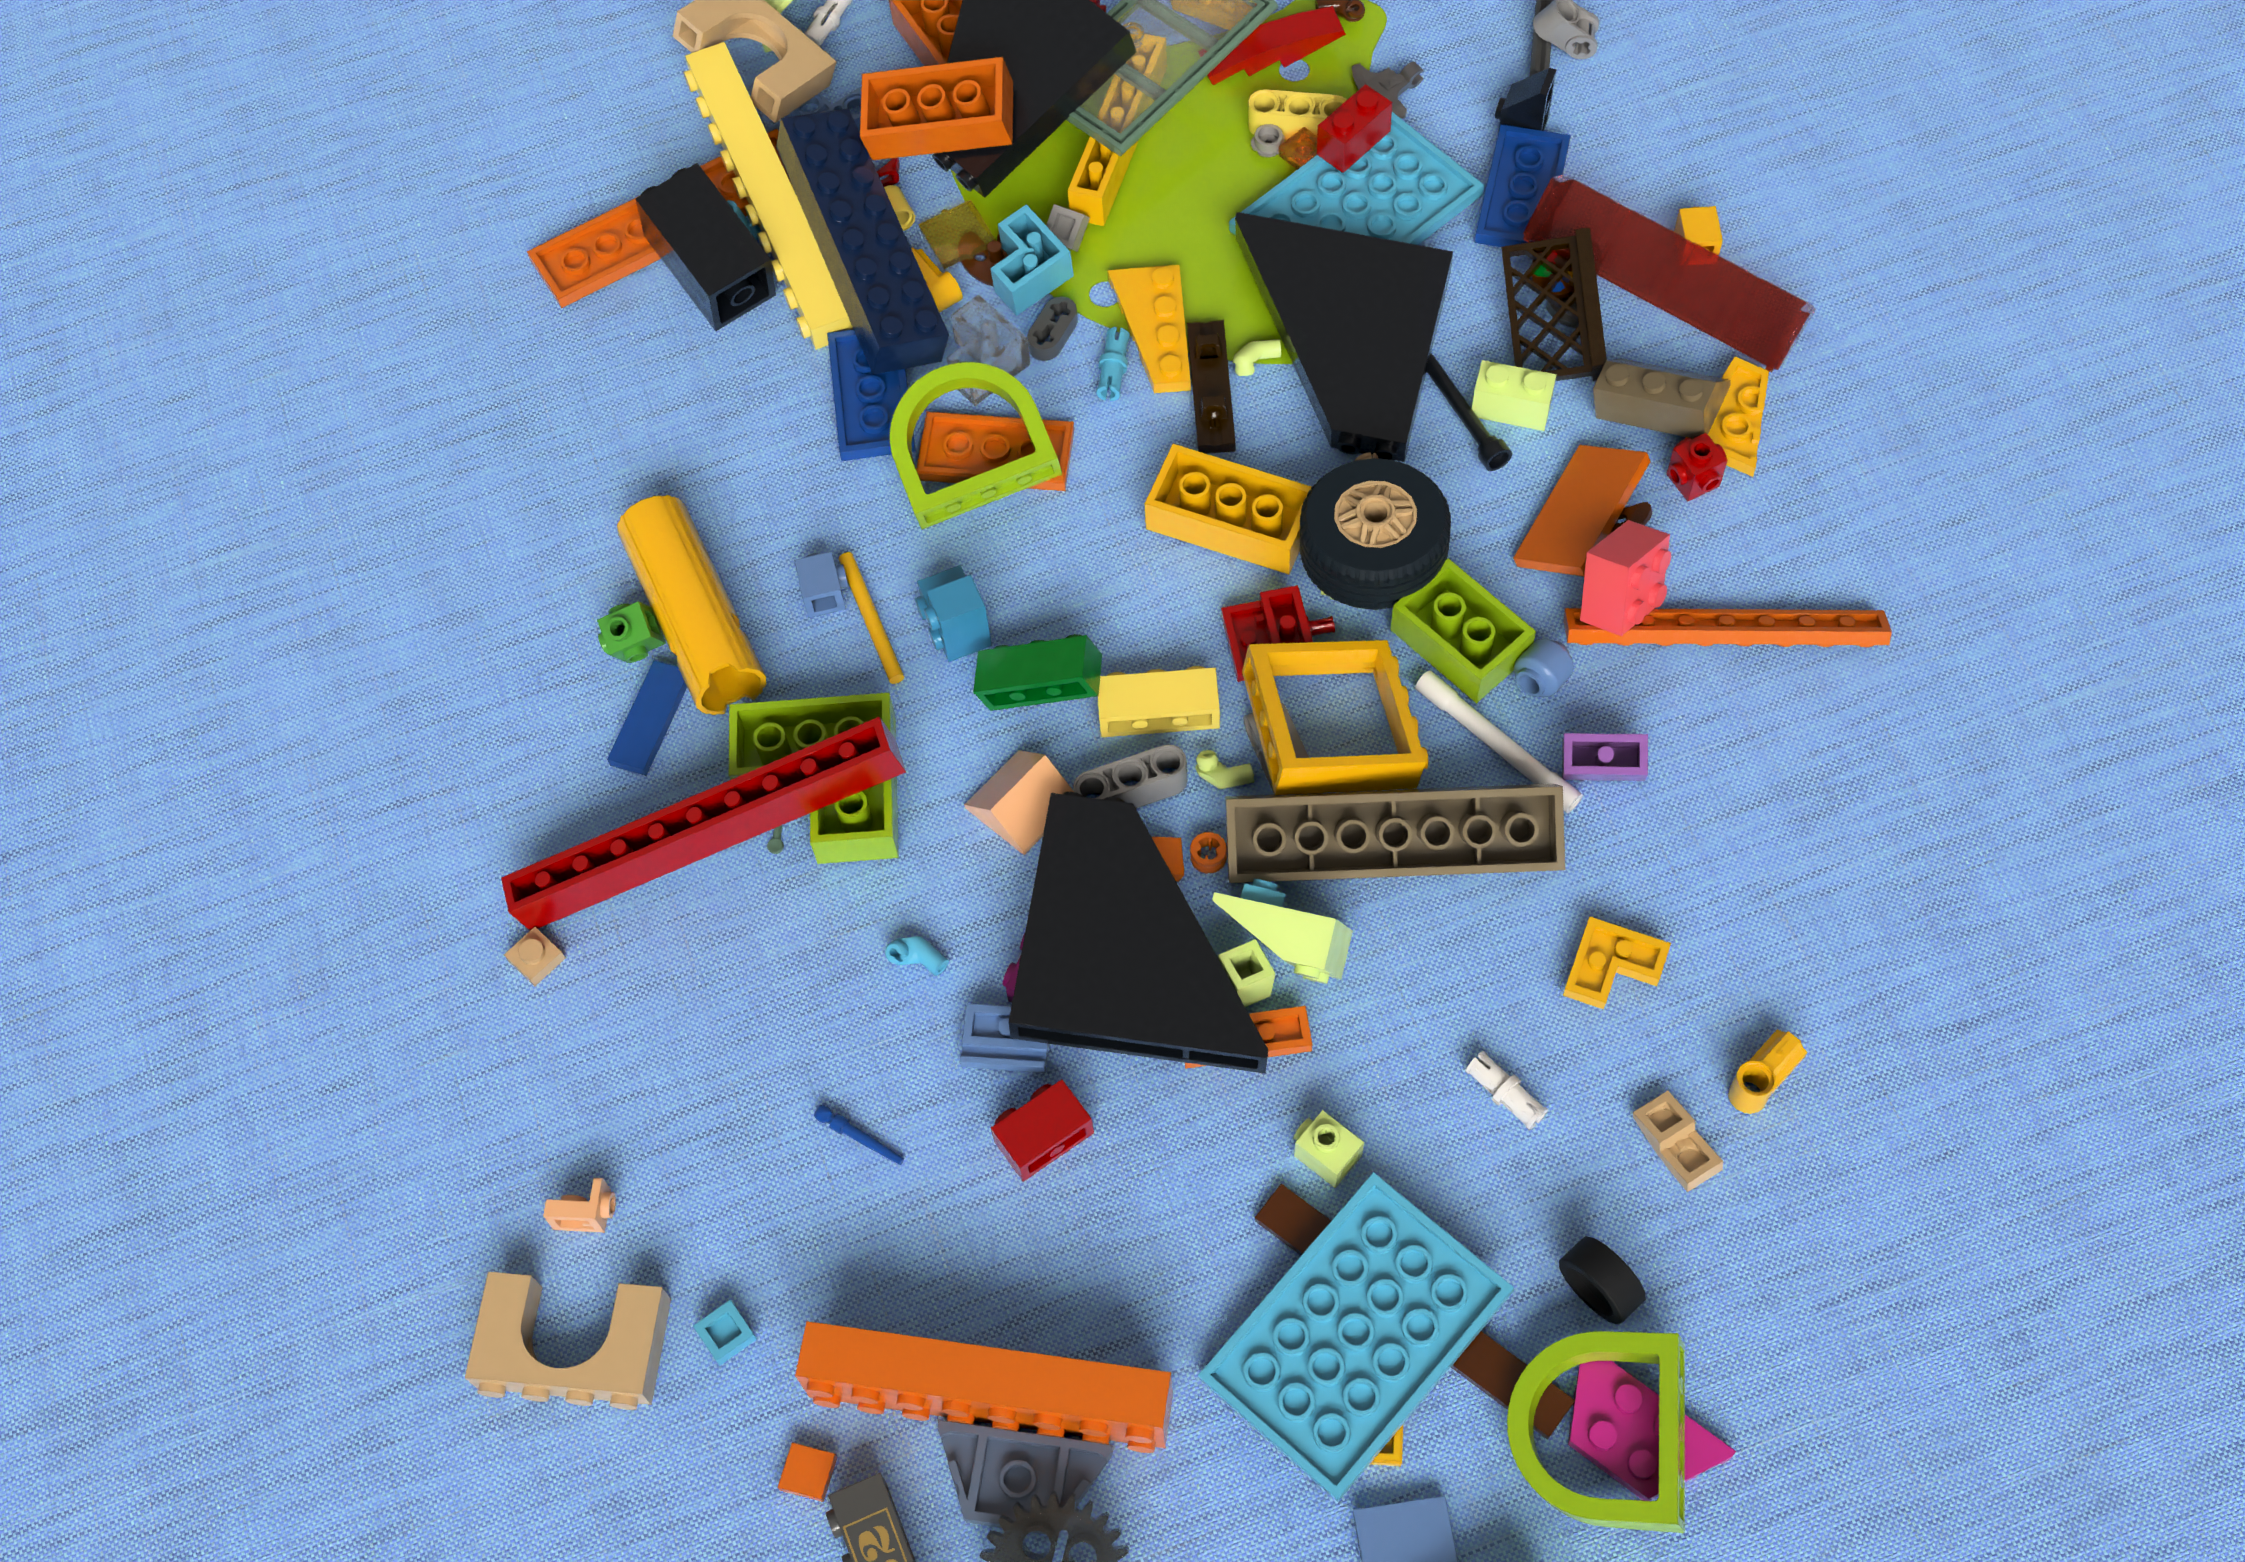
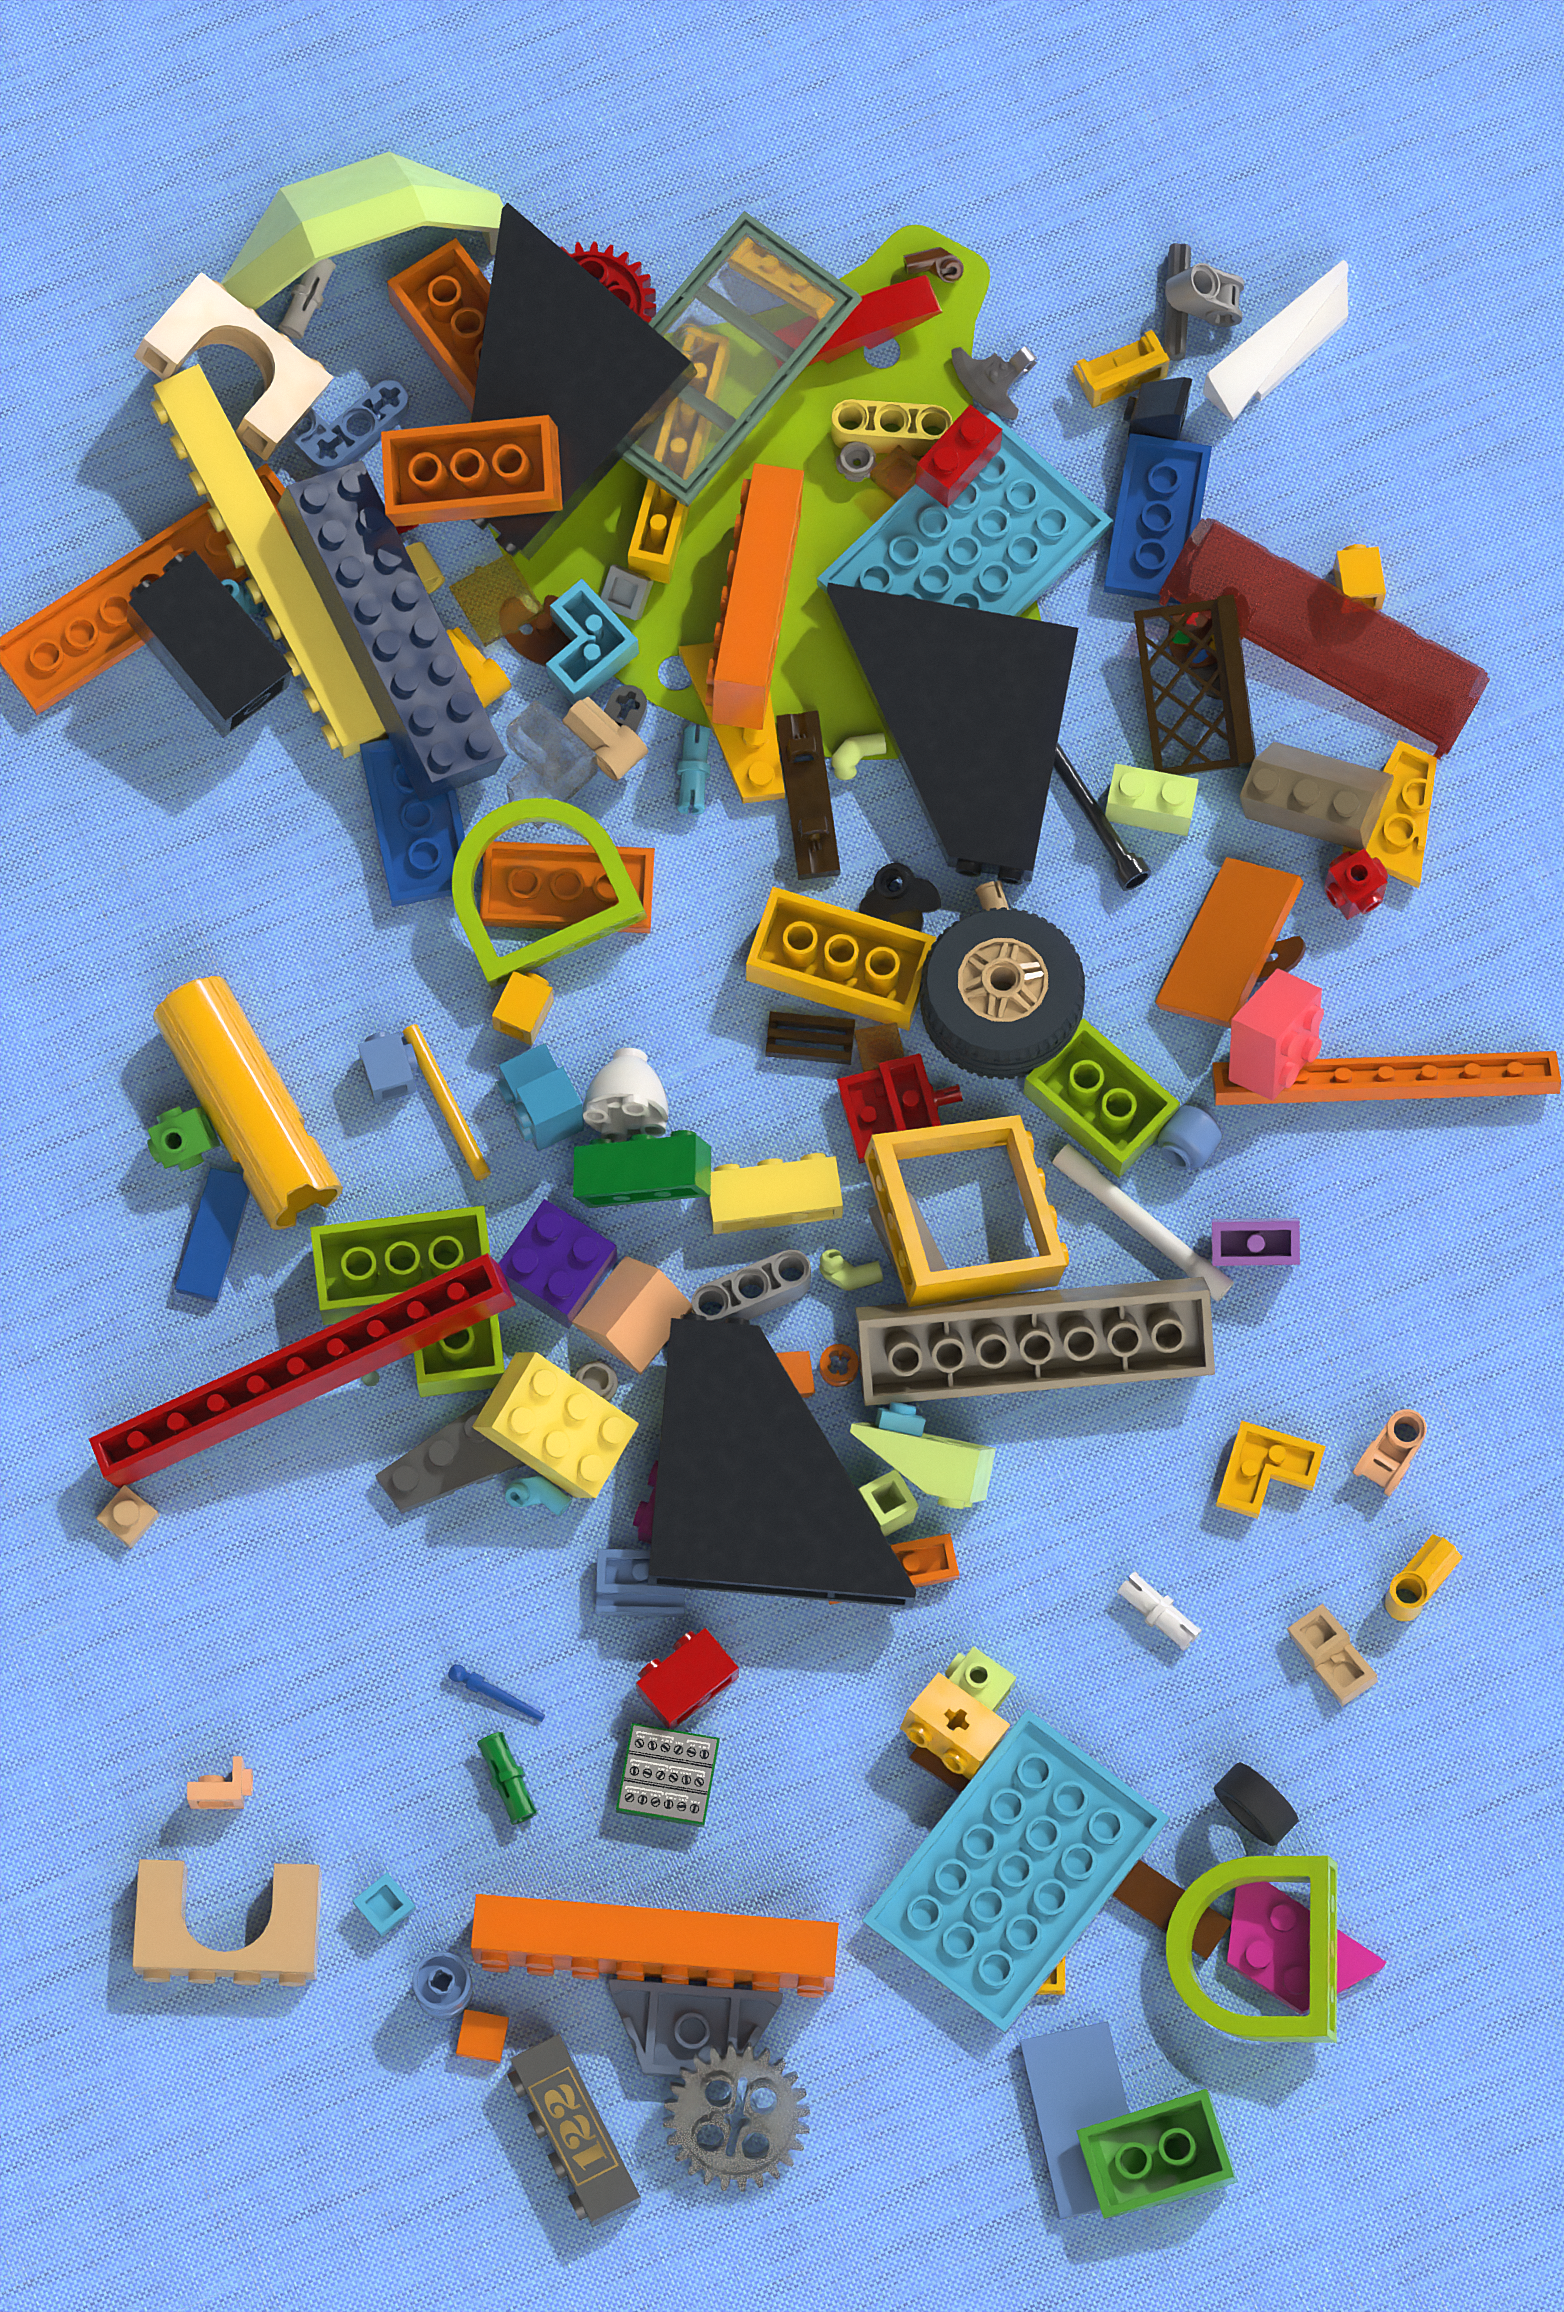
camera: 10 degrees left, 10 degrees up
(770, 1416) = (442, 1985): none -> medium blue wheel
(859, 1216) = (507, 1778): none -> green pin
(875, 903) = (445, 1463): none -> dark grey wing
(936, 886) = (555, 1425): none -> light yellow brick
(945, 540) = (523, 1007): none -> yellow brick
(954, 750) = (557, 1263): none -> dark purple brick
(981, 857) = (598, 1378): none -> light grey plate
(1015, 1221) = (667, 1775): none -> light grey tile
(1027, 612) = (626, 1098): none -> white piece
(1044, 336) = (615, 746): none -> tan piece
(1173, 224) = (754, 596): none -> orange brick
(1200, 571) = (810, 1022): none -> dark brown tile
(1258, 580) = (878, 1045): none -> clear orange plate
(1298, 464) = (902, 906): none -> black plate
(1299, 1186) = (945, 1707): none -> yellow brick
(1487, 89) = (1122, 370): none -> yellow hinge
(1627, 65) = (1280, 344): none -> white wedge
(1733, 956) = (1388, 1457): none -> light nougat piece

